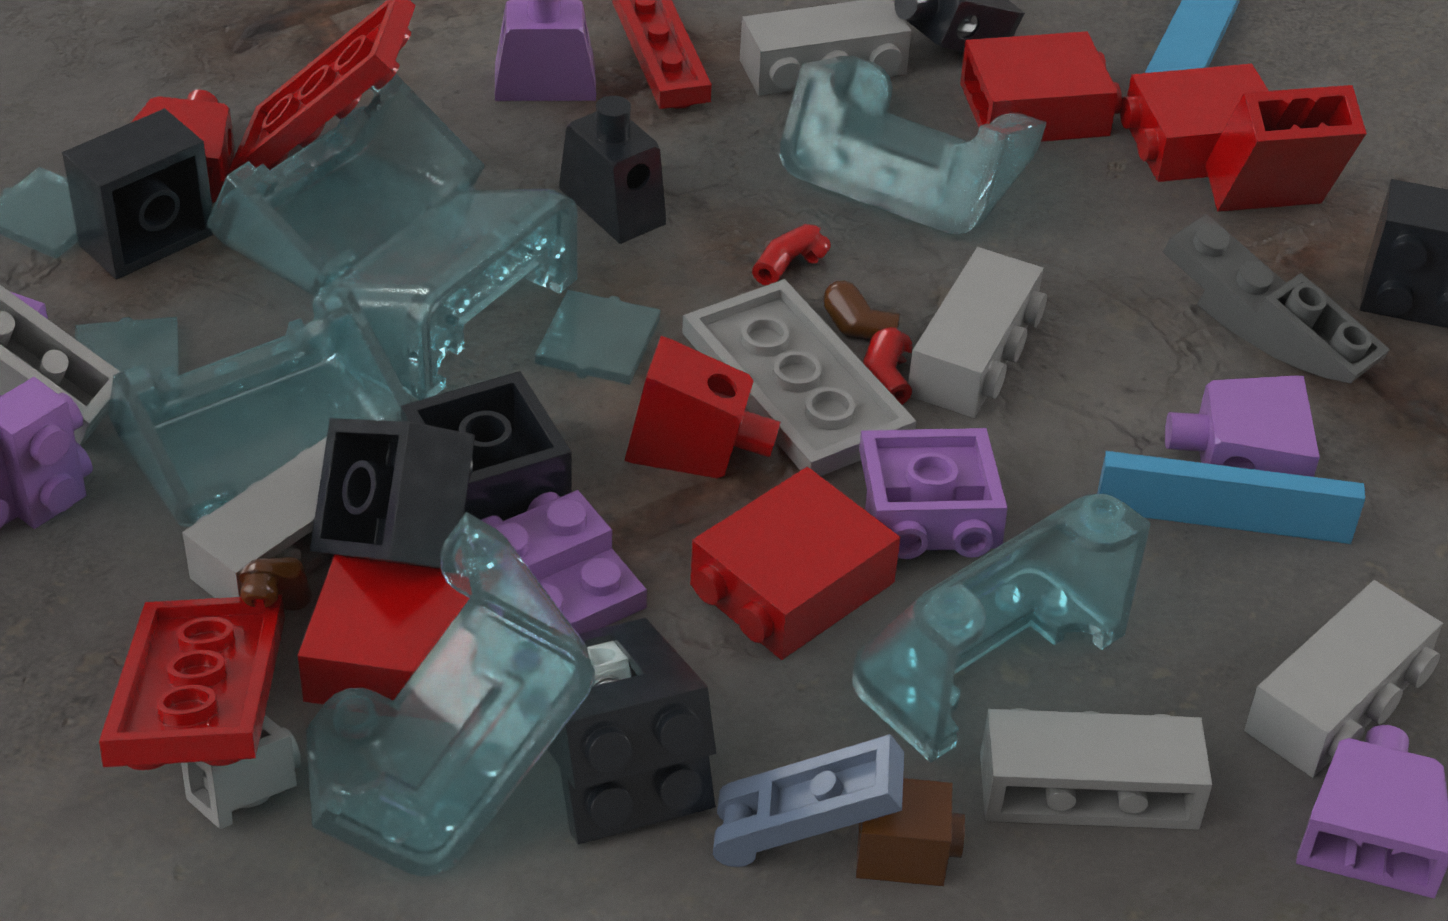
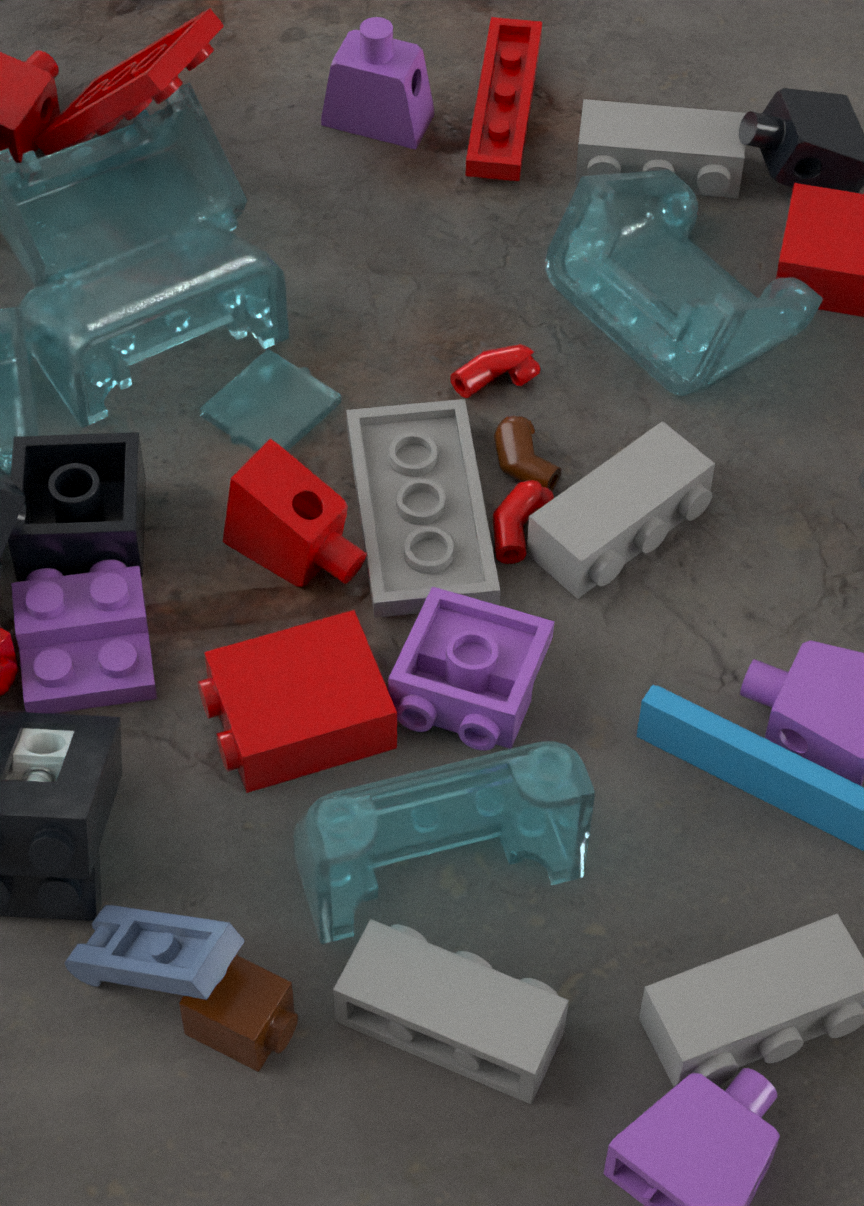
camera: 25 degrees right, 10 degrees up
(614, 171) = (358, 214): black torso -> none

